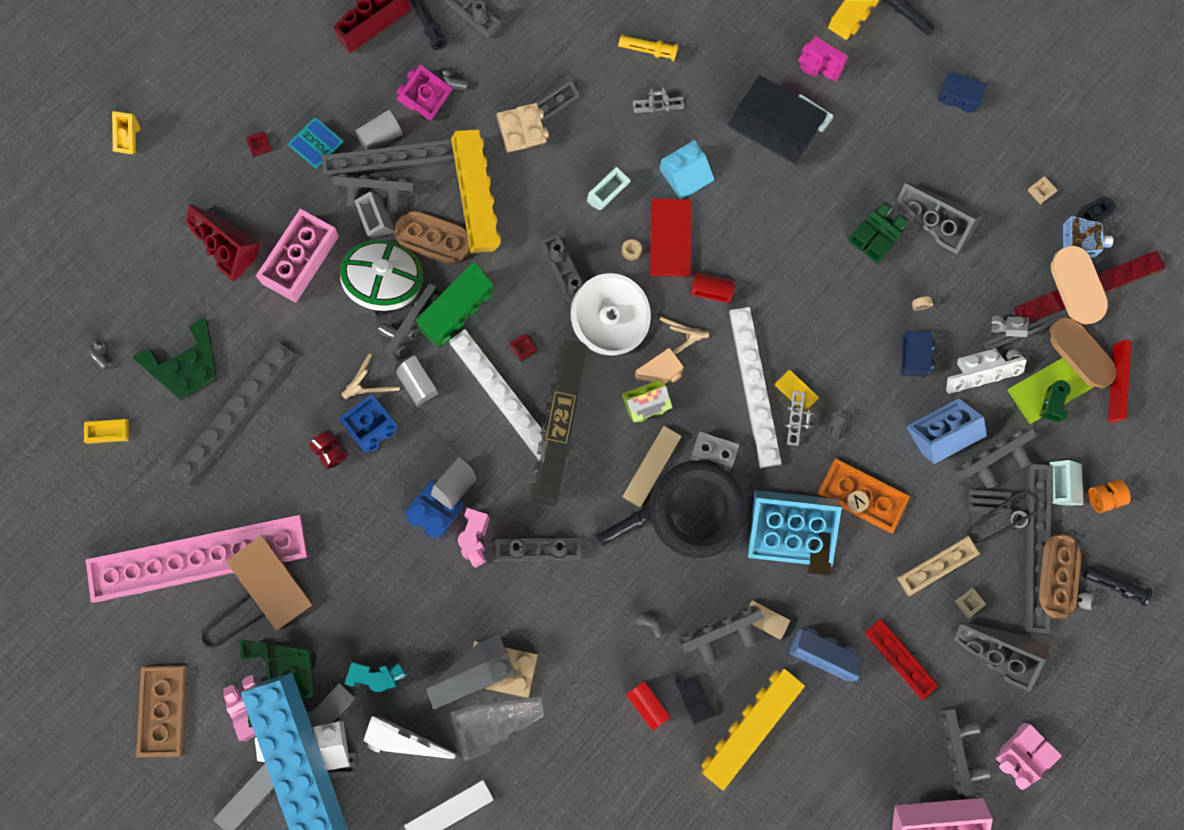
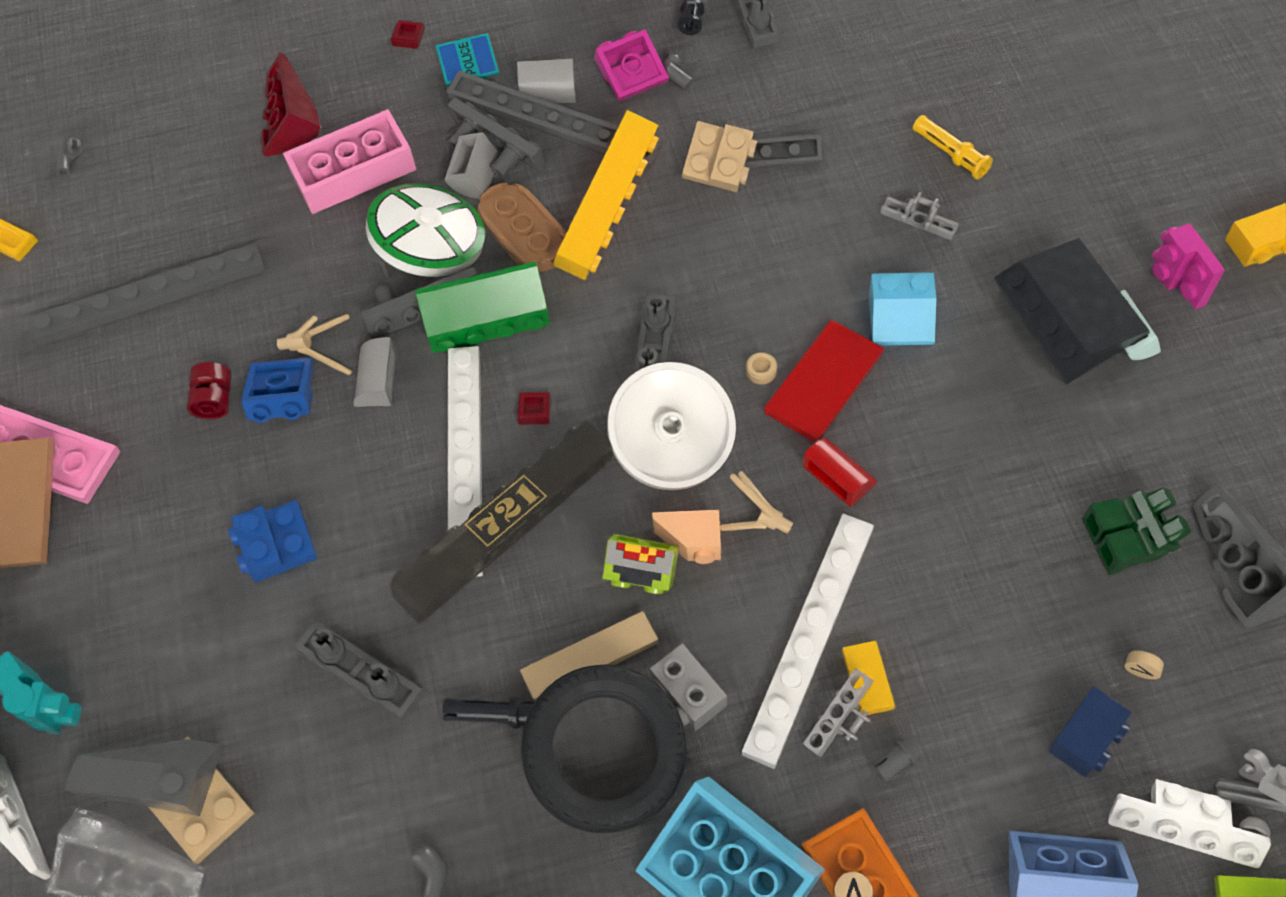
camera: 45 degrees right, 15 degrees down
(188, 370) = (141, 222): dark green wing -> none
(454, 483) = (317, 517): light grey brick -> none
(469, 539) = (283, 596): bright pink hips -> none
(608, 189) = (778, 275): light aqua brick -> none

